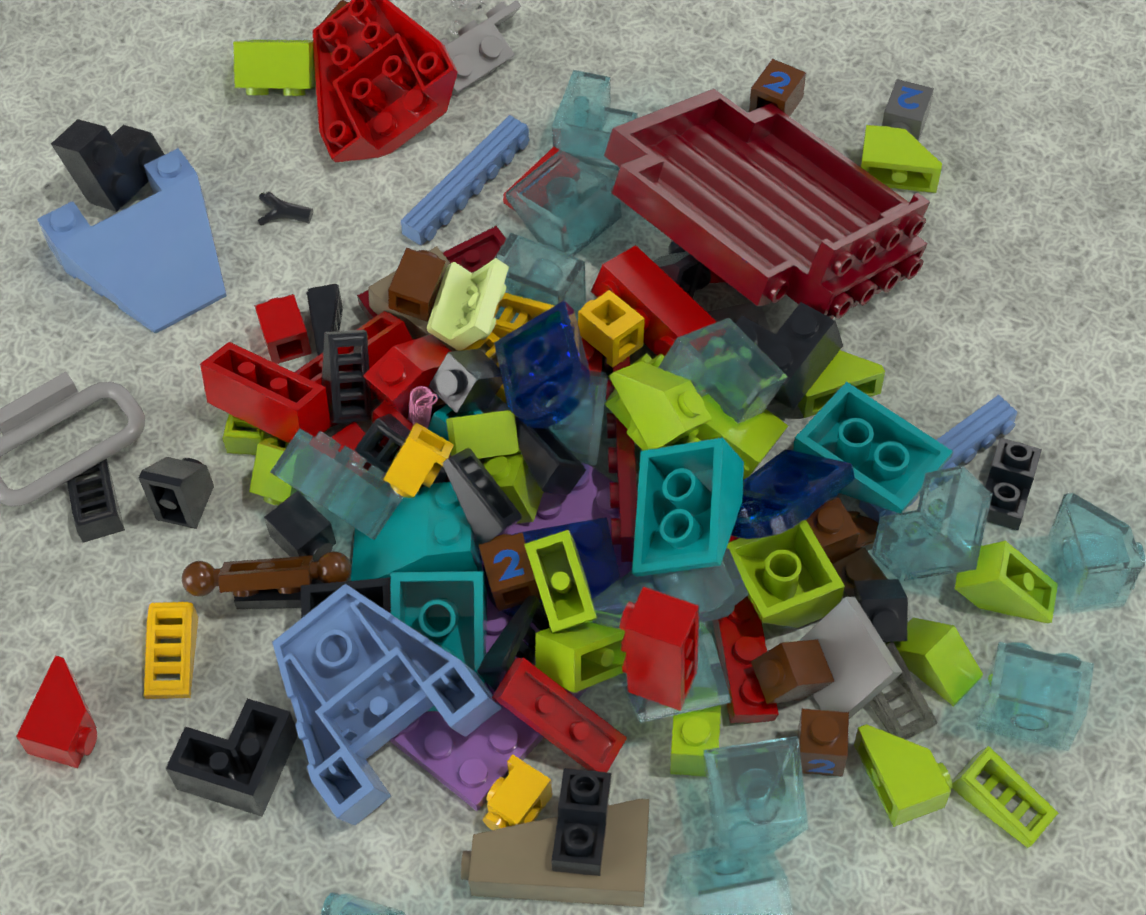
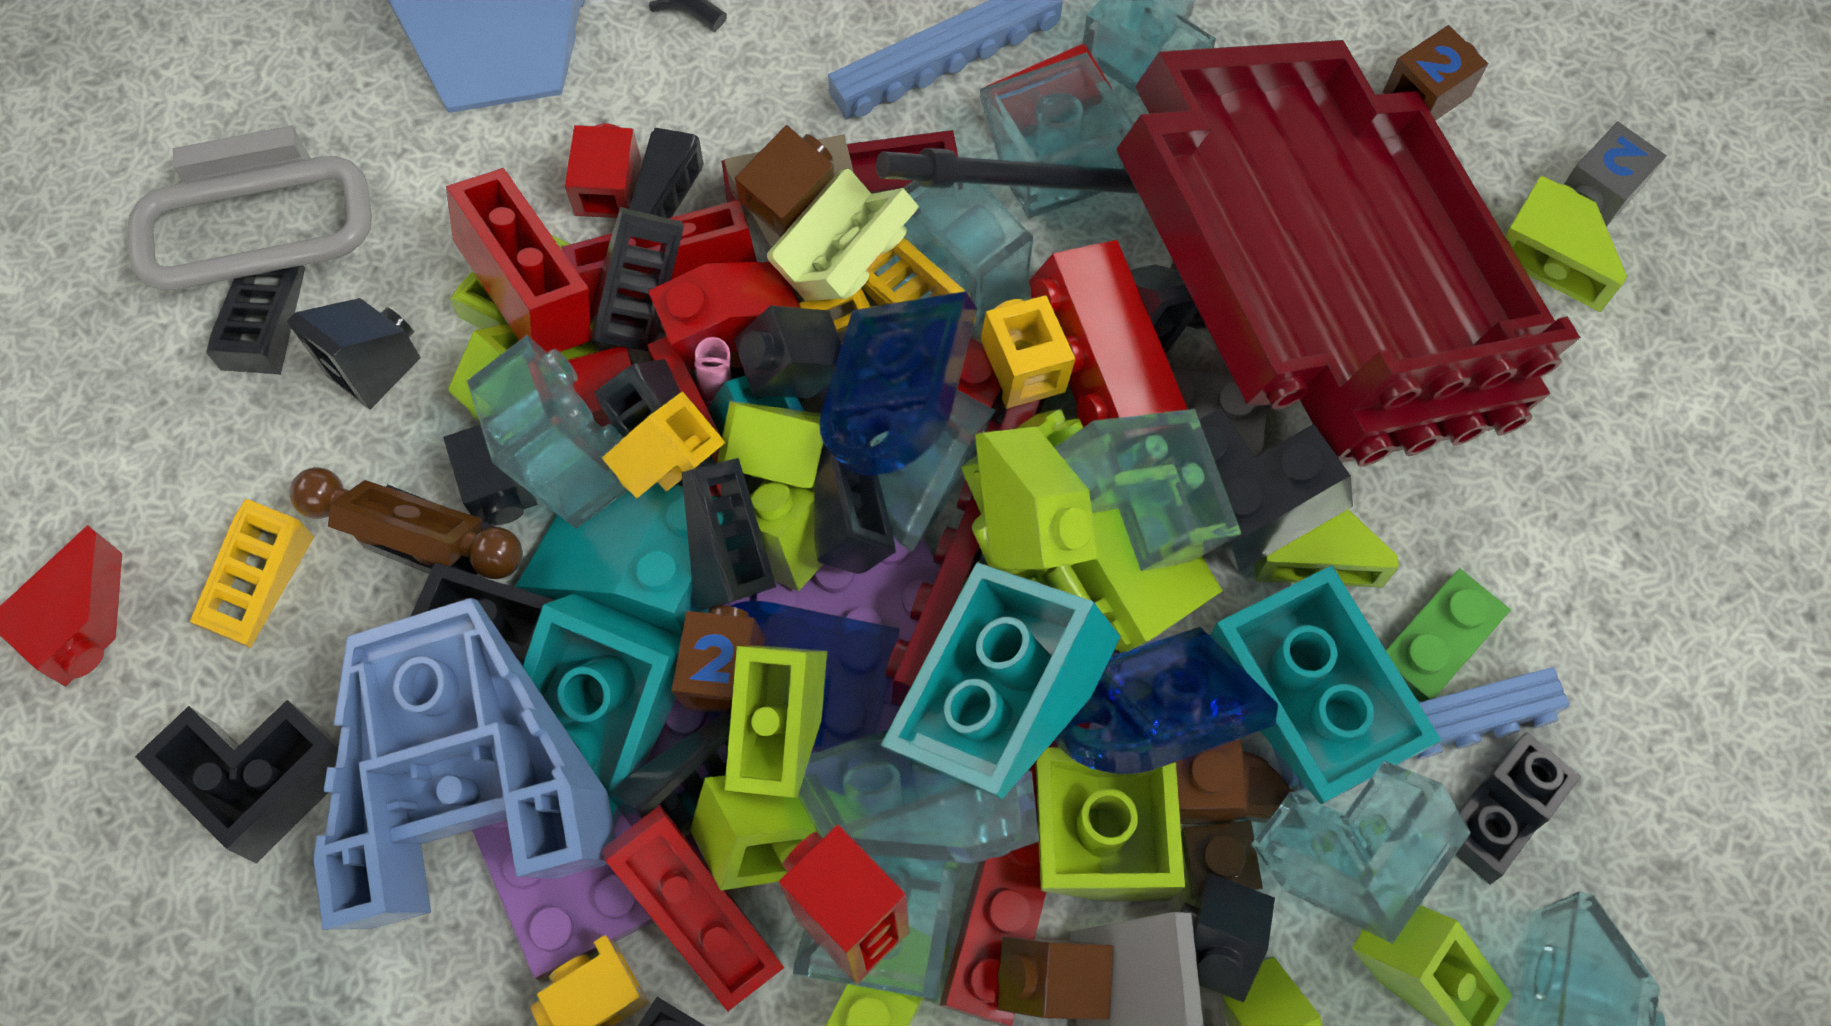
camera: 20 degrees right, 10 degrees up
(515, 239) = (942, 169): none -> black bar
(931, 399) = (1445, 635): none -> bright green plate

